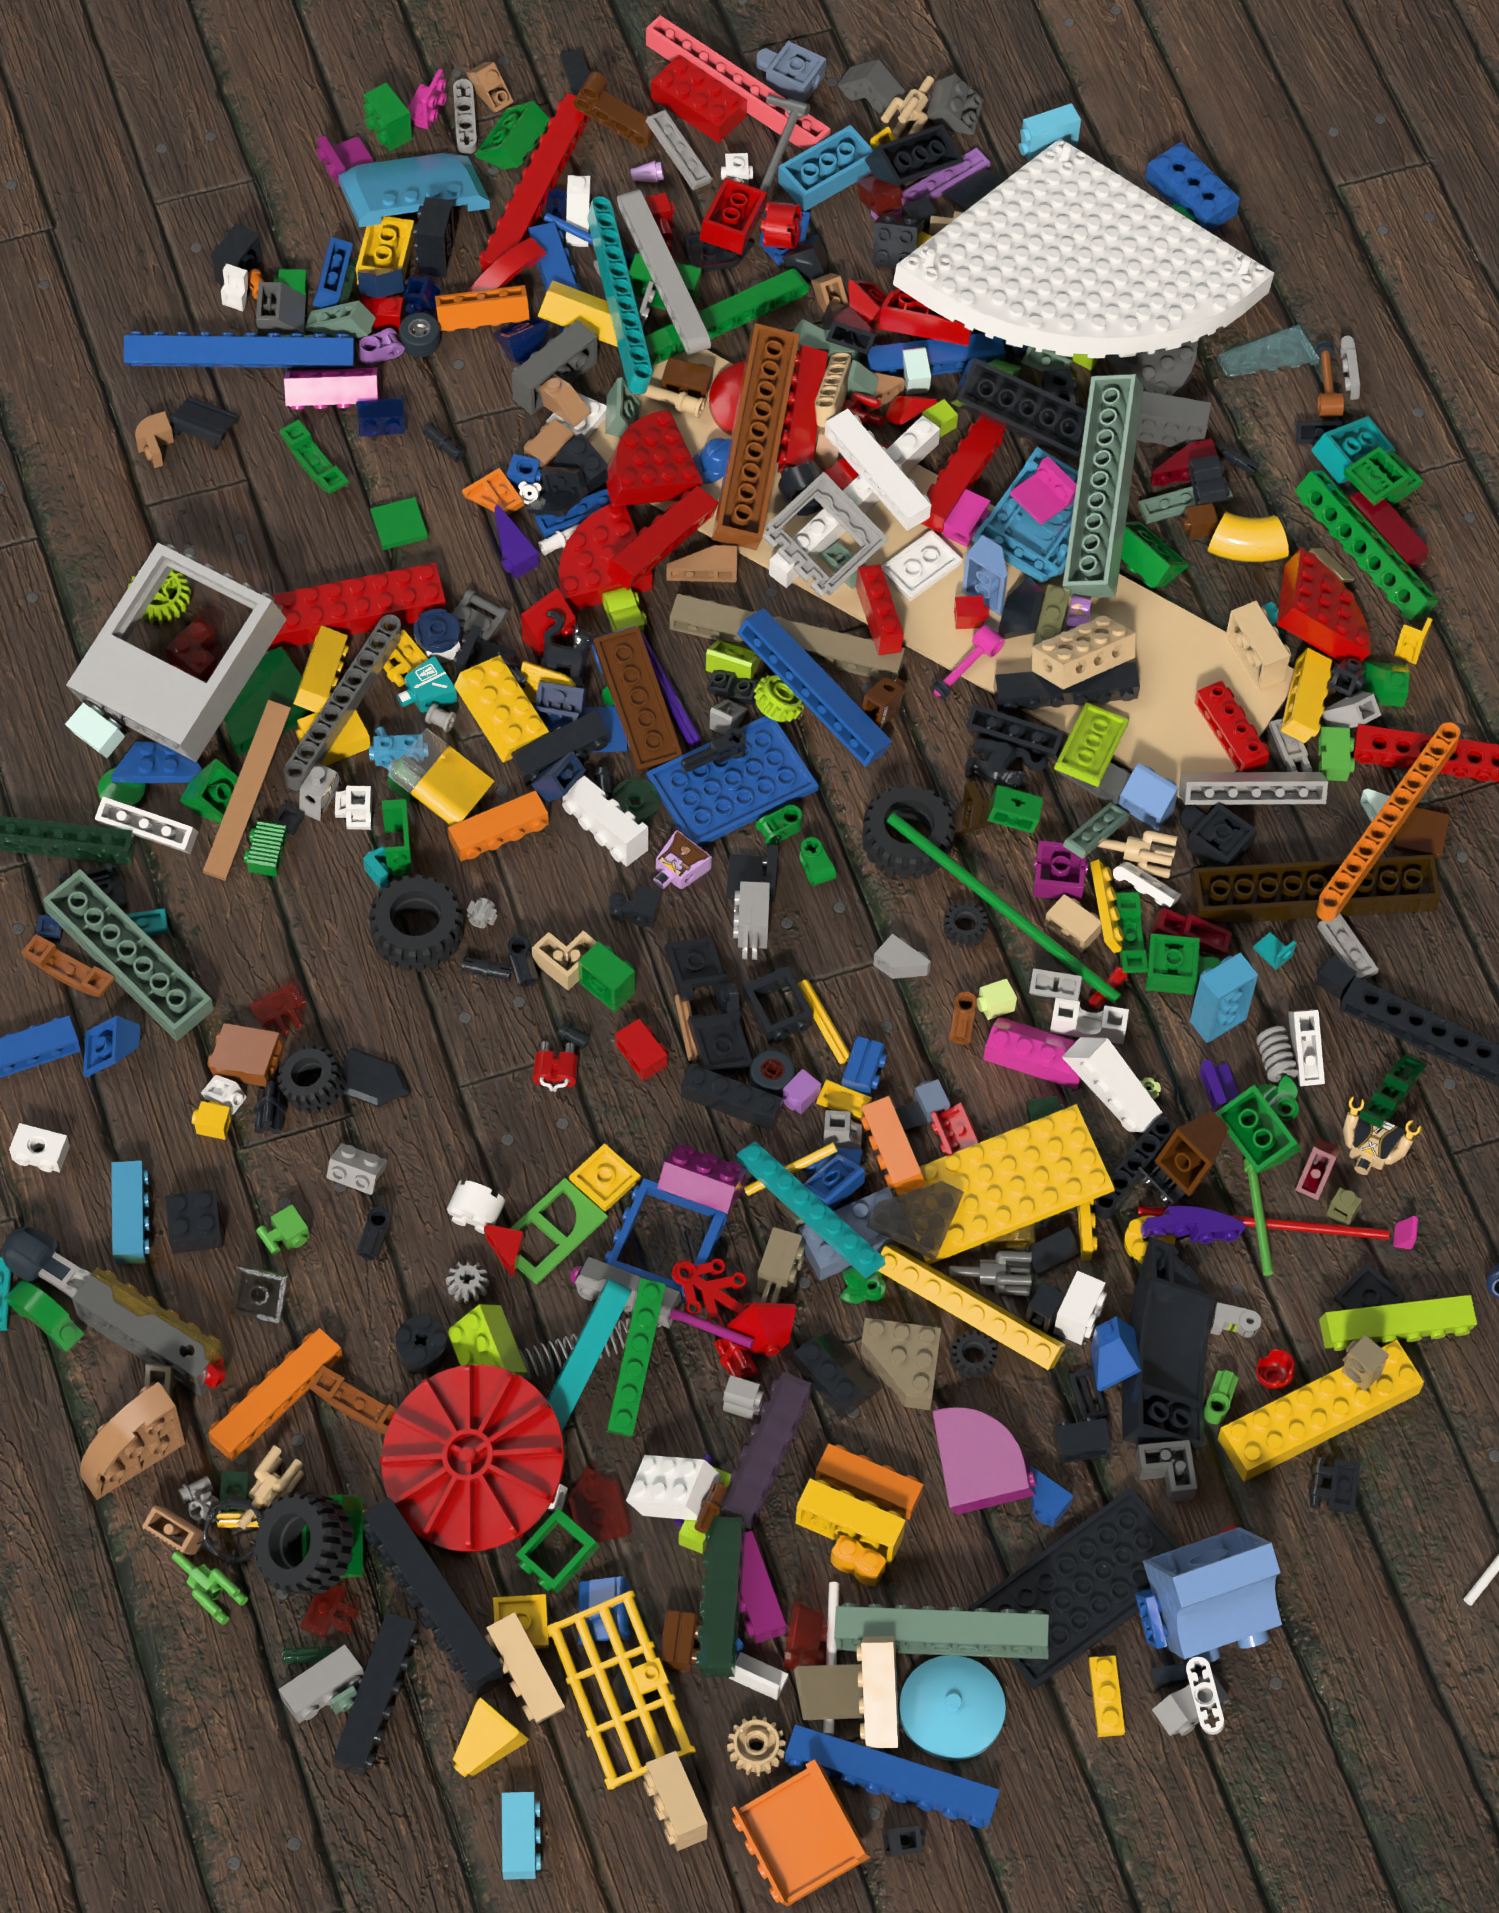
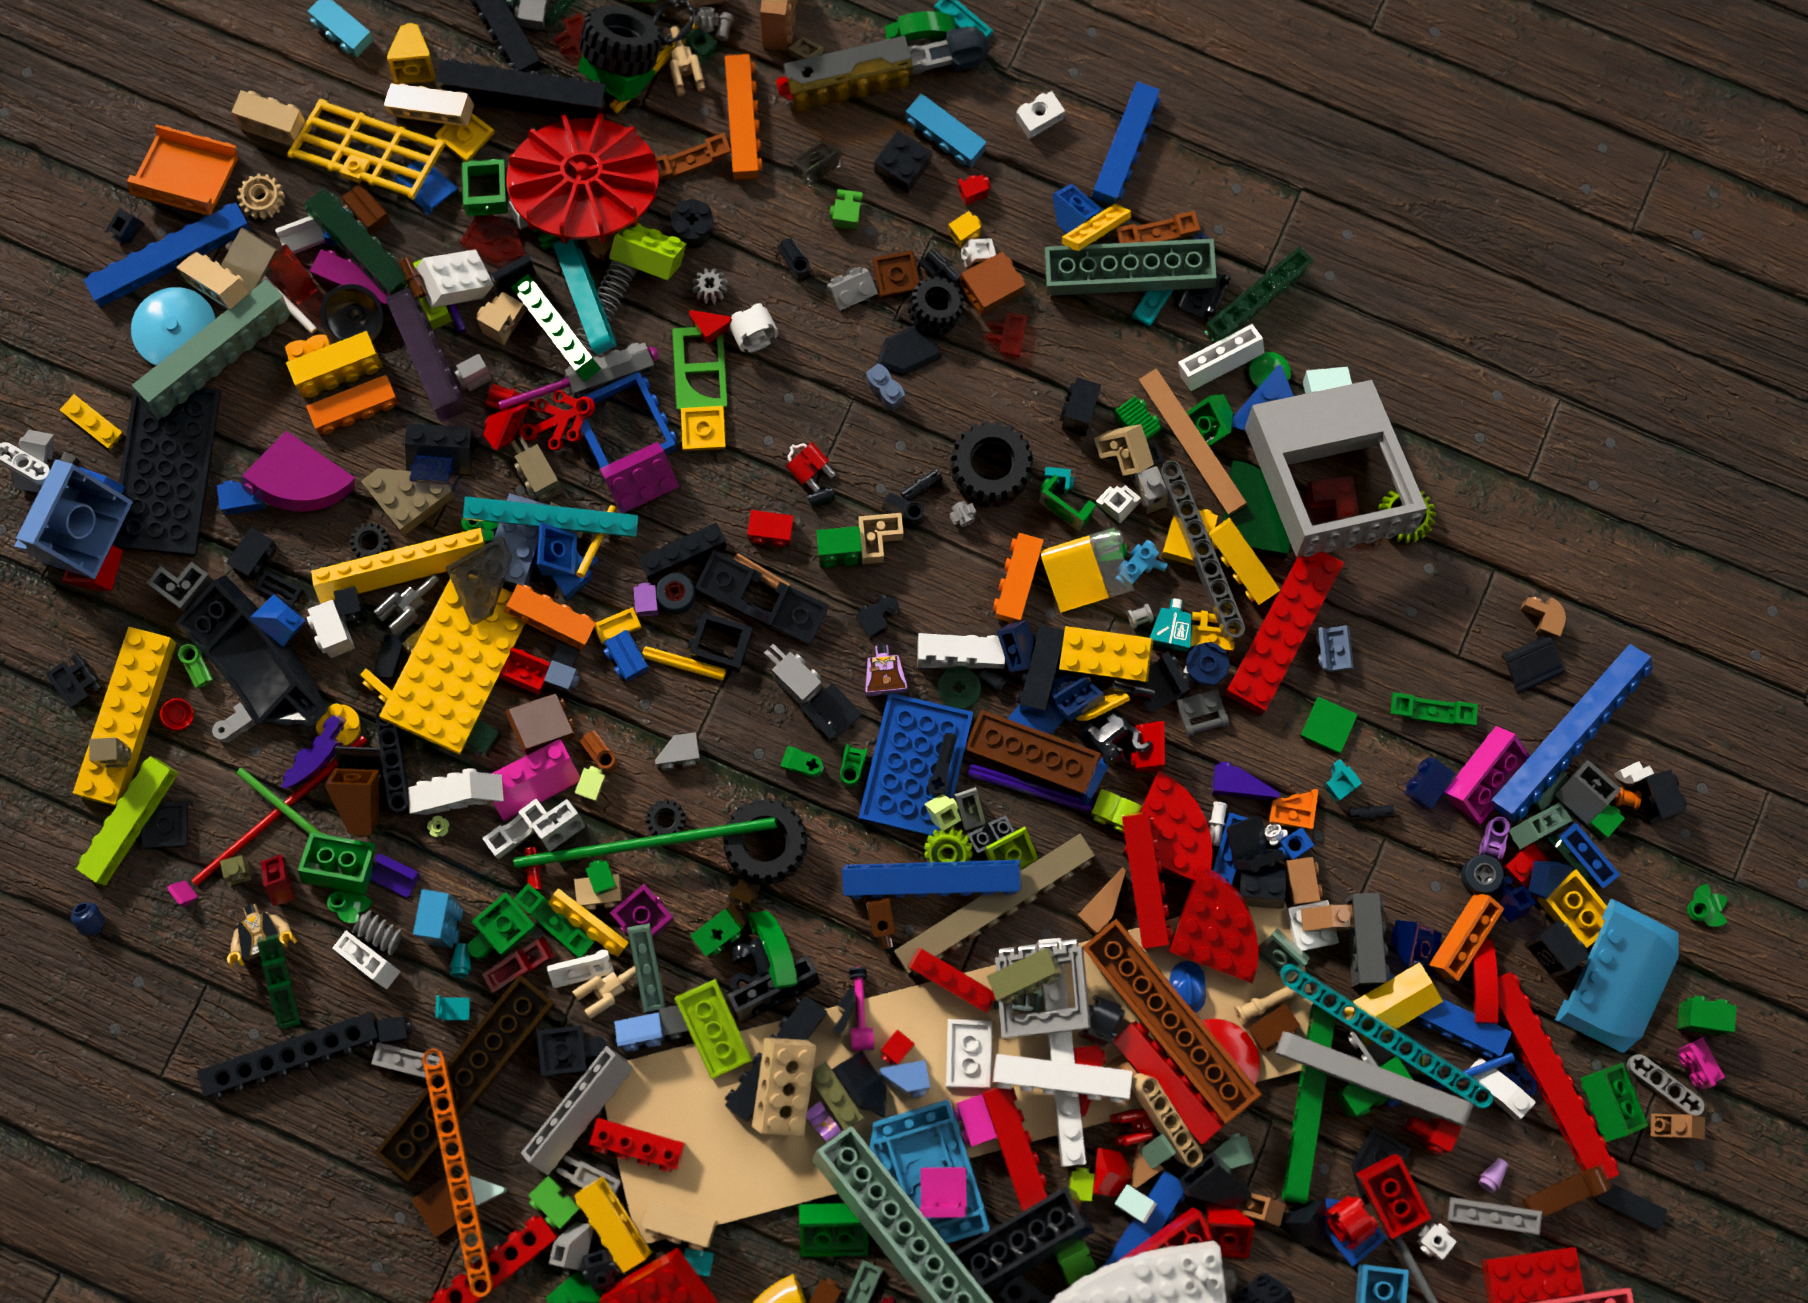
camera: 130 degrees right, 15 degrees up
(118, 1004) = (1096, 227): none -> yellow plate
(165, 1144) = (973, 188): none -> red brick
(291, 181) = (1709, 905): none -> green plate
(297, 893) = (1082, 401): none -> black brick
(301, 829) = (1128, 445): none -> tan brick
(307, 1145) = (895, 274): none -> reddish brown tile
(328, 560) = (1335, 648): none -> sand blue bracket
(342, 156) = (1696, 958): magenta bracket -> none
(426, 1062) = (881, 384): none -> sand blue brick
(439, 476) = (1342, 781): none -> teal brick
(617, 1446) = (512, 273): none -> black tile
(668, 1425) = (500, 317): none -> tan brick
(753, 718) = (943, 811): none -> yellowish green brick
(790, 1550) = (337, 312): none -> black dish
(828, 549) = (1025, 976): none -> olive brick
(841, 1130) = (596, 599): light grey brick -> none
(863, 1350) = (431, 469): none -> clear blue piece
(982, 659) = (846, 1007): none -> black slope
(984, 747) = (776, 947): none -> green slope
(988, 1077) = (540, 723): none -> slope
(1063, 915) = (601, 877): none -> green brick

